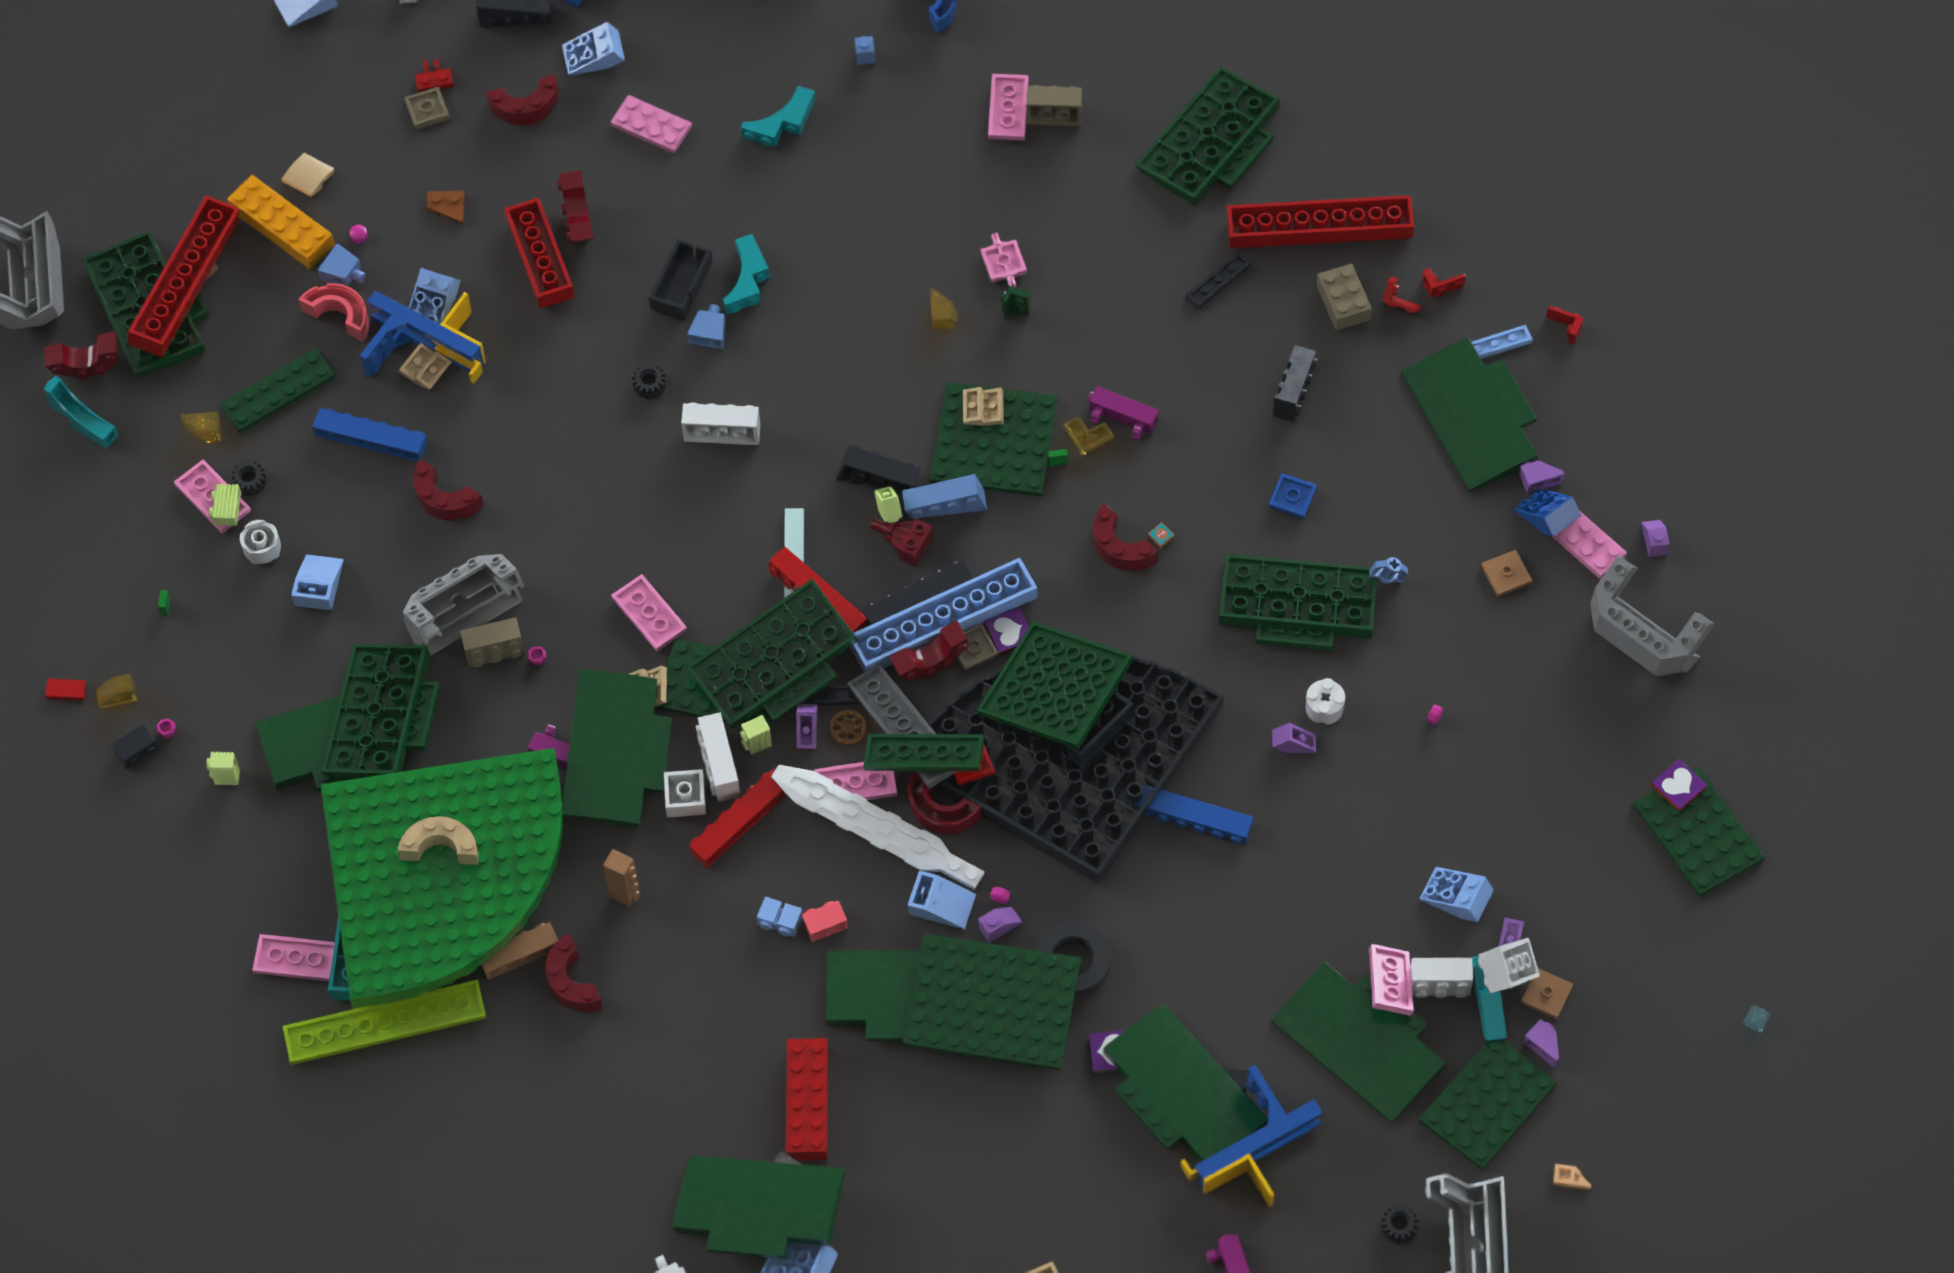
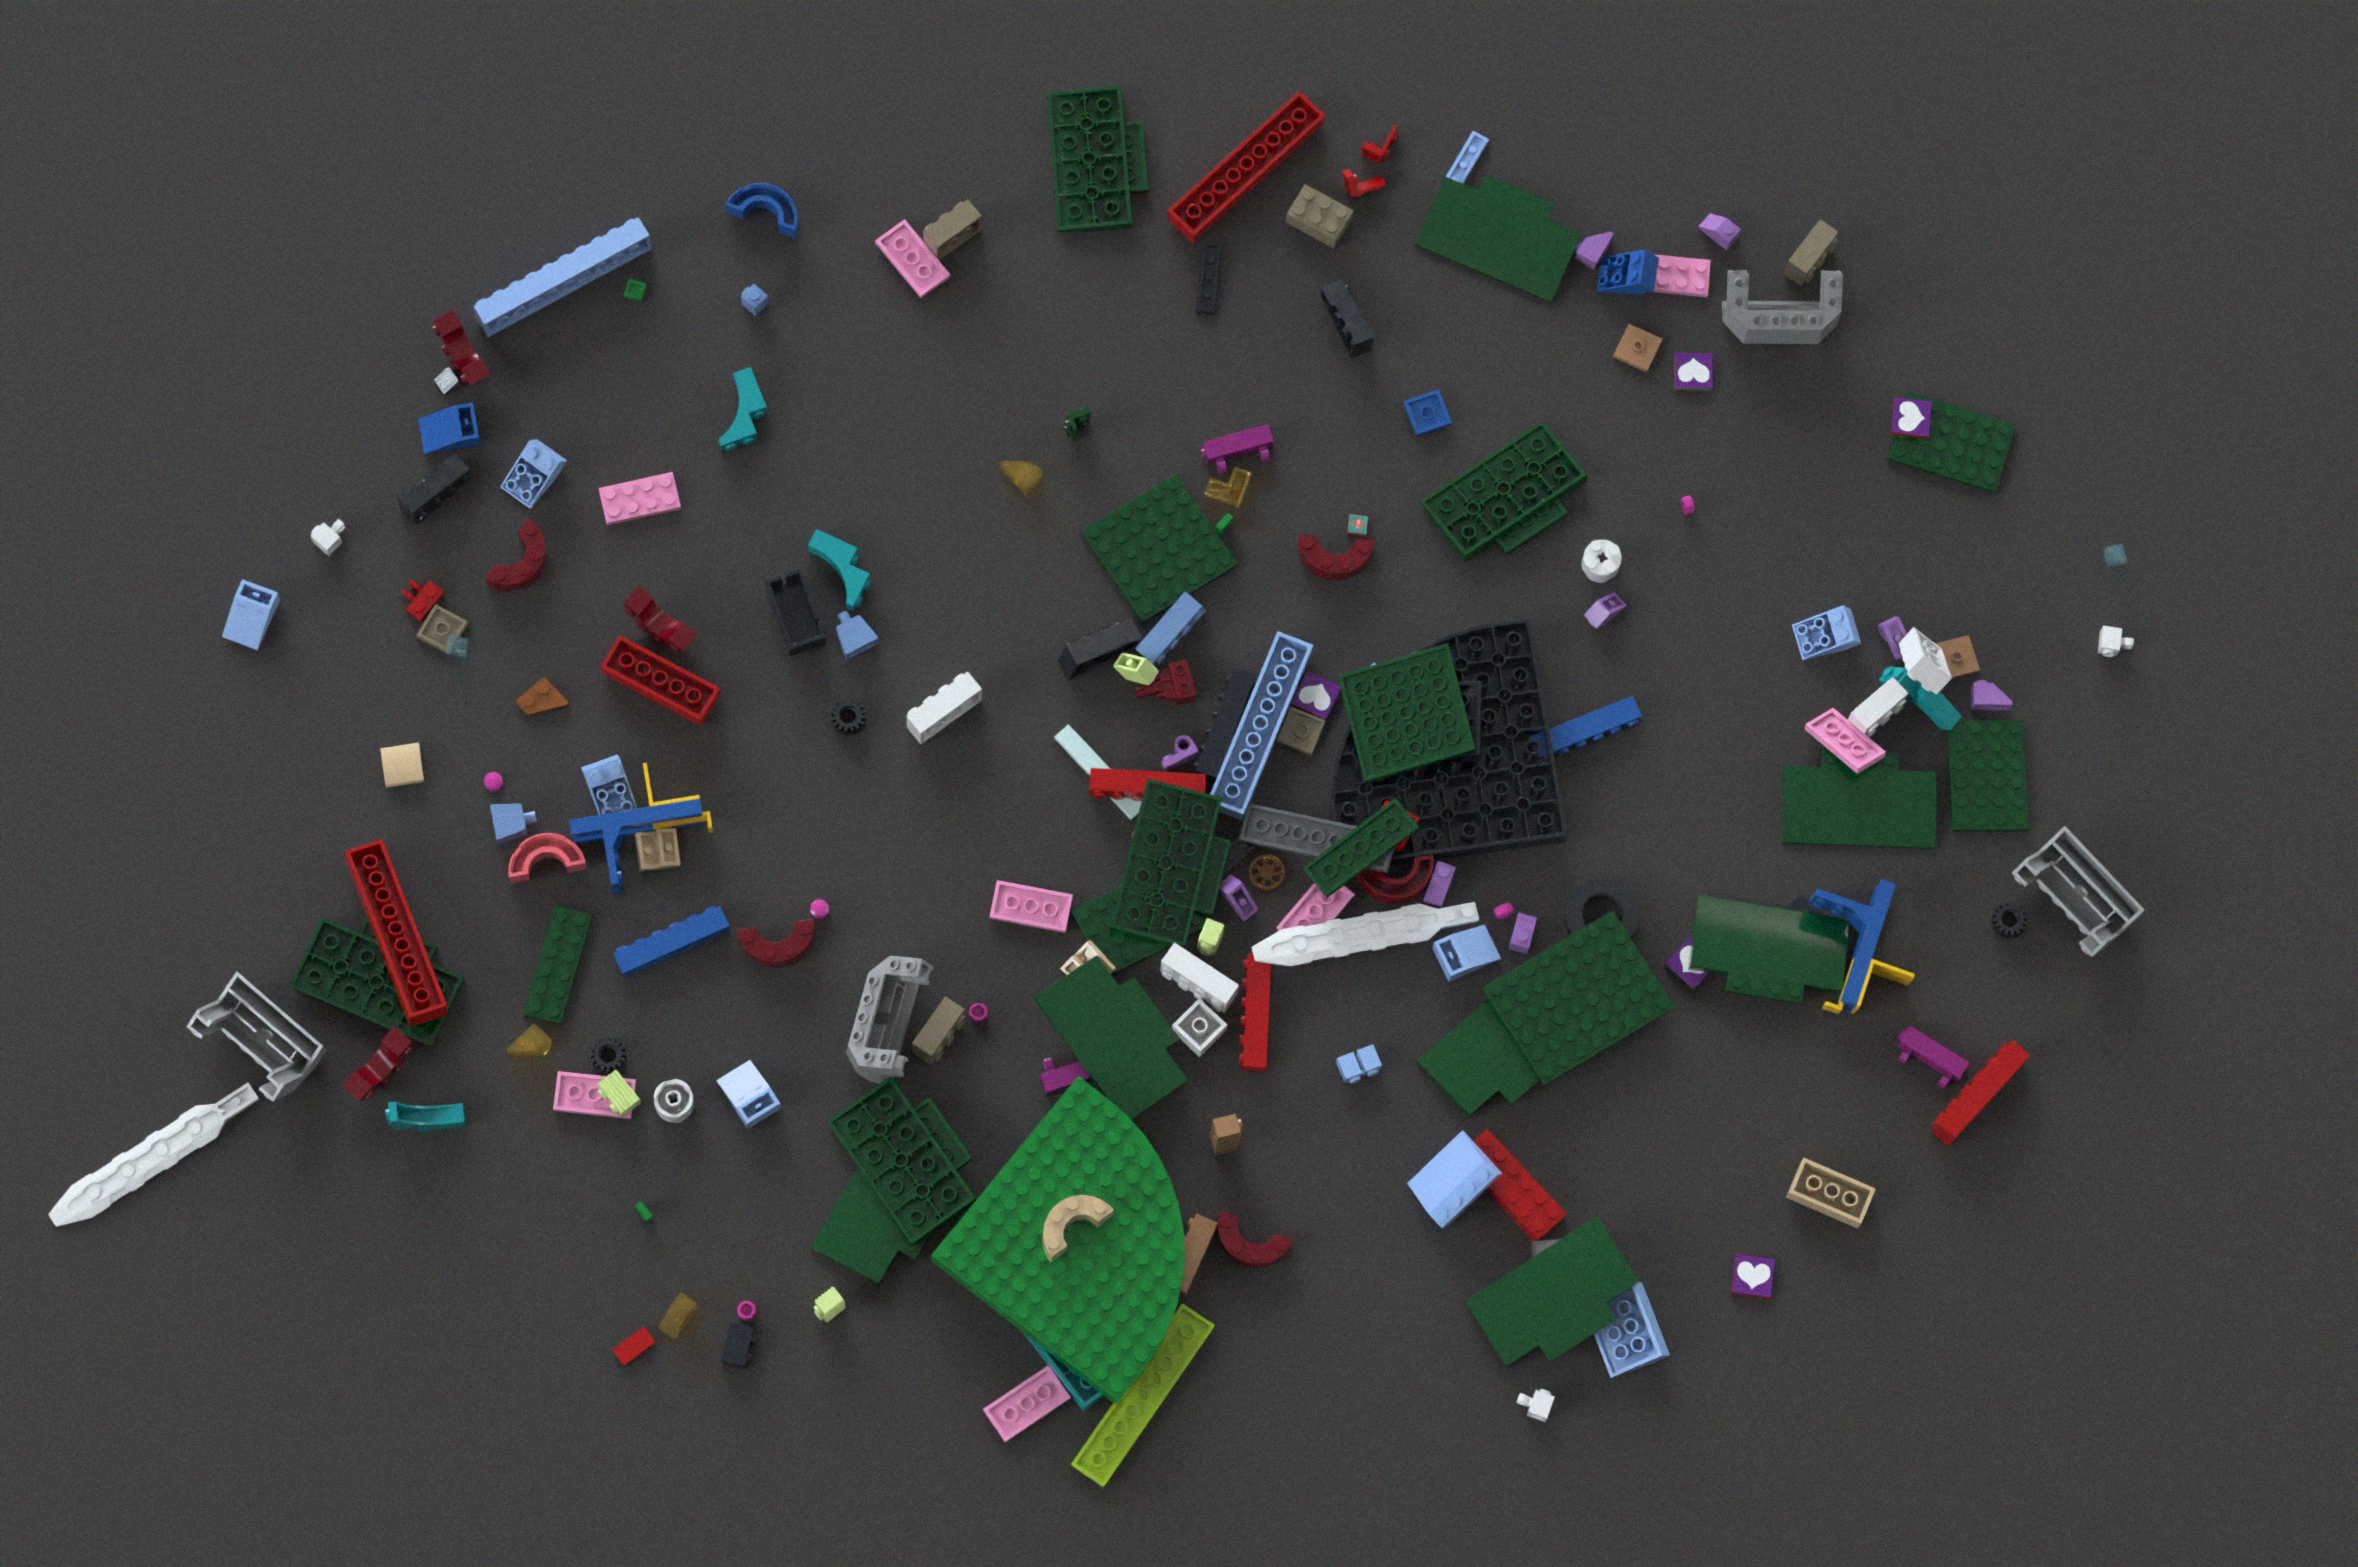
camera: 50 degrees left, 10 degrees up
(281, 222) = (423, 822): light orange brick -> none
(424, 124) = (457, 646): none -> clear light blue tile
(496, 496) = (819, 909): none -> dark pink tile
(764, 1057) = (1453, 1179): none -> light blue slope
(824, 920) = (1395, 1038): coral brick -> none
(863, 594) = (1181, 756): none -> medium lavender plate
(932, 657) = (1282, 762): dark red brick -> none
(969, 836) = (1439, 884): none -> medium lavender slope
(983, 406) = (1131, 529): tan slope -> none
(1003, 260) = (1030, 393): bright pink plate -> none
(1389, 572) = (1553, 420): medium blue piece -> none
(1535, 622) = (1693, 371): none -> tile
(1569, 1177) = (2091, 785): light nougat tile -> none
(1573, 321) = (1511, 99): red bracket -> none
(1690, 1079) = (2111, 641): none -> white brick
(1713, 601) = (1811, 253): none -> dark tan brick

